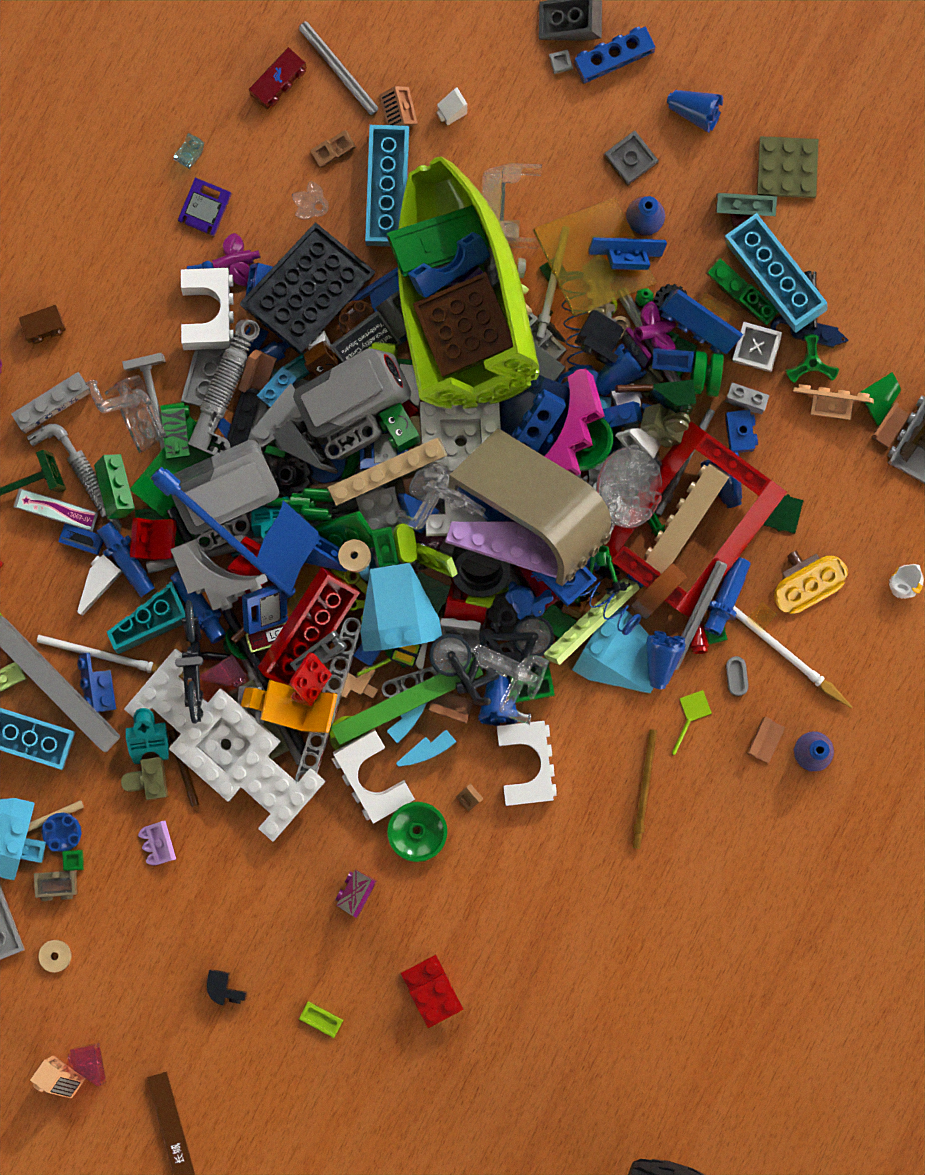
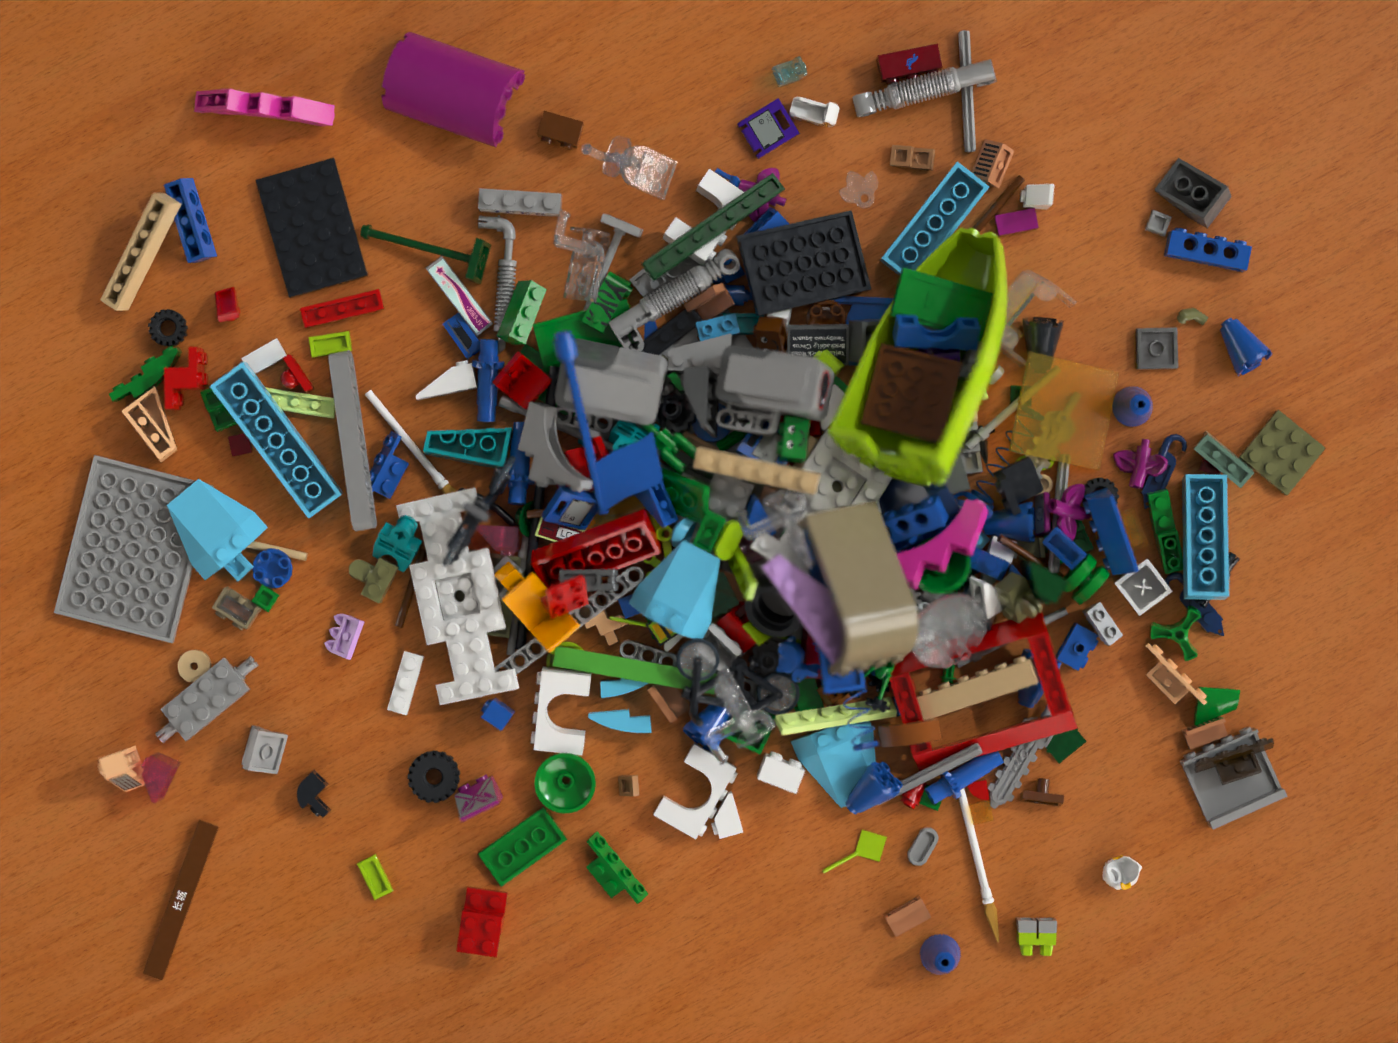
camera: 35 degrees right, 5 degrees up
(82, 975) = (205, 699): none -> light grey plate
(135, 304) = (649, 171): none -> clear plate
(159, 981) = (264, 750): none -> light grey bracket
(216, 311) = (713, 227): none -> dark green tile
(231, 167) = (814, 112): none -> white animal
(233, 846) = (405, 683): none -> white plate
(318, 68) = (950, 81): none -> light grey piece
(323, 815) = (497, 713): none -> blue brick
(324, 908) = (438, 761): none -> black tyre
(351, 547) = (674, 511): tan piece -> none
(420, 908) = (522, 846): none -> green tile
(426, 134) = (999, 203): none -> reddish brown bar
(450, 139) = (1016, 222): none -> magenta tile
(505, 876) = (612, 872): none -> green bracket
(534, 210) = (1042, 335): none -> black cone
(566, 766) = (727, 818): none -> white slope
(582, 697) = (781, 772): none -> white brick
(627, 253) = (1093, 428): blue bracket -> none
(638, 111) = (1190, 314): none -> olive arm
(639, 827) = (750, 911): pearl gold bar -> none
(643, 296) = (1075, 475): green plant -> none
(684, 254) = (1140, 463): none -> magenta plant
(703, 245) = (1160, 482): none -> dark blue plate
(747, 599) = (979, 789): none -> red tile
(763, 559) = (1015, 767): none -> light grey bar
(810, 584) = (1039, 817): yellow tile -> none
(875, 677) = (1036, 932): none -> hips

